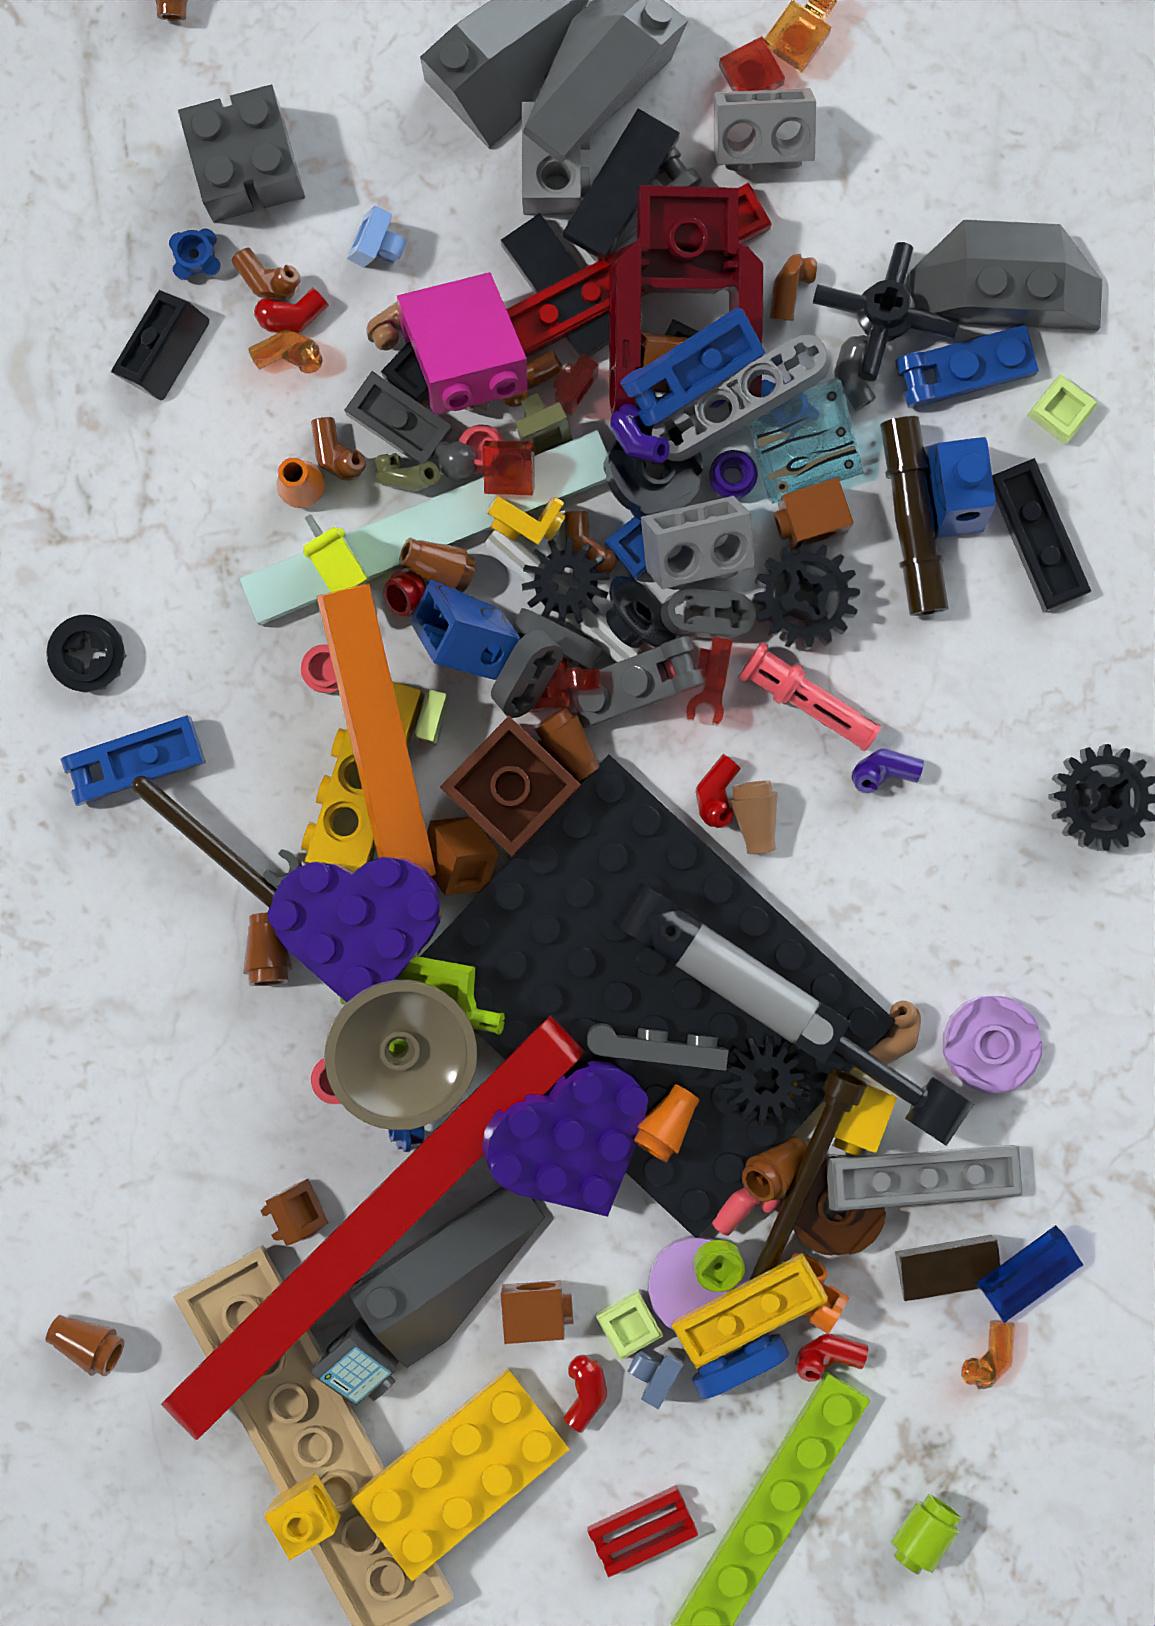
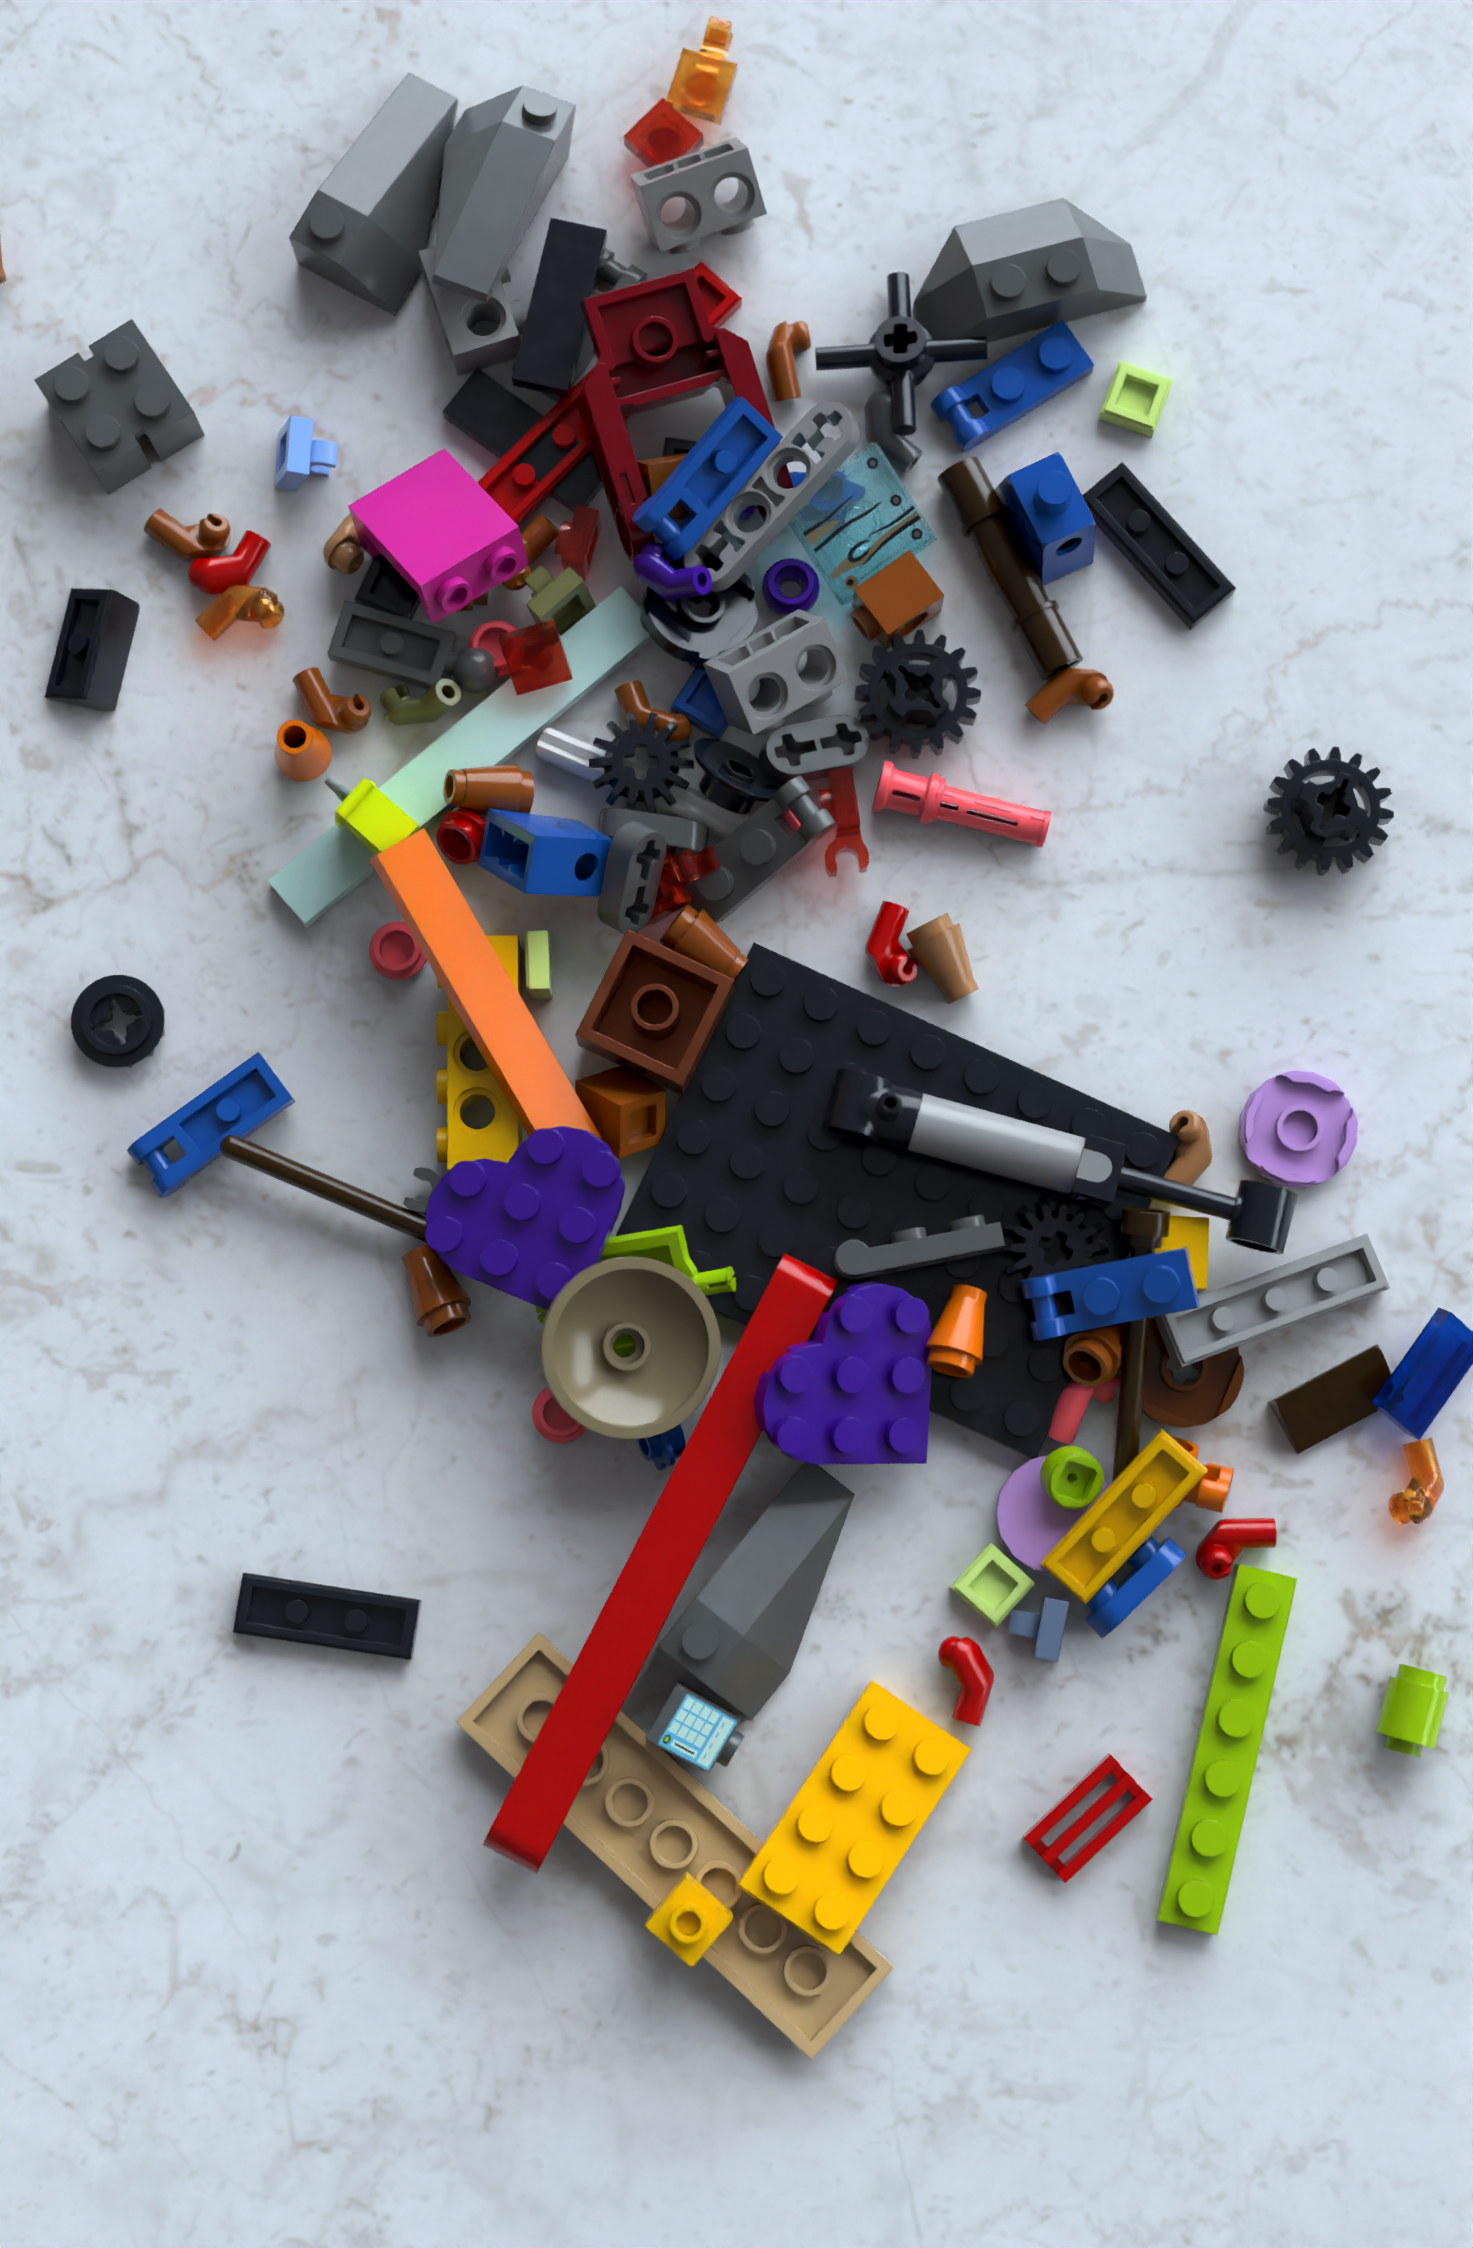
camera: 20 degrees left, 5 degrees down
(86, 1344) = (371, 1813): dark orange cone -> none
(102, 1177) = (327, 1616): none -> black tile
(188, 241) = (94, 520): blue plate -> none
(295, 1213) = (565, 1579): dark orange tile -> none
(512, 521) = (560, 714): yellow bracket -> none
(535, 1311) = (880, 1601): dark orange brick -> none
(799, 1135) = (1113, 1293): none -> blue plate
(882, 766) = (1067, 858): dark purple arm -> none
(931, 629) = (1071, 687): none -> dark orange arm

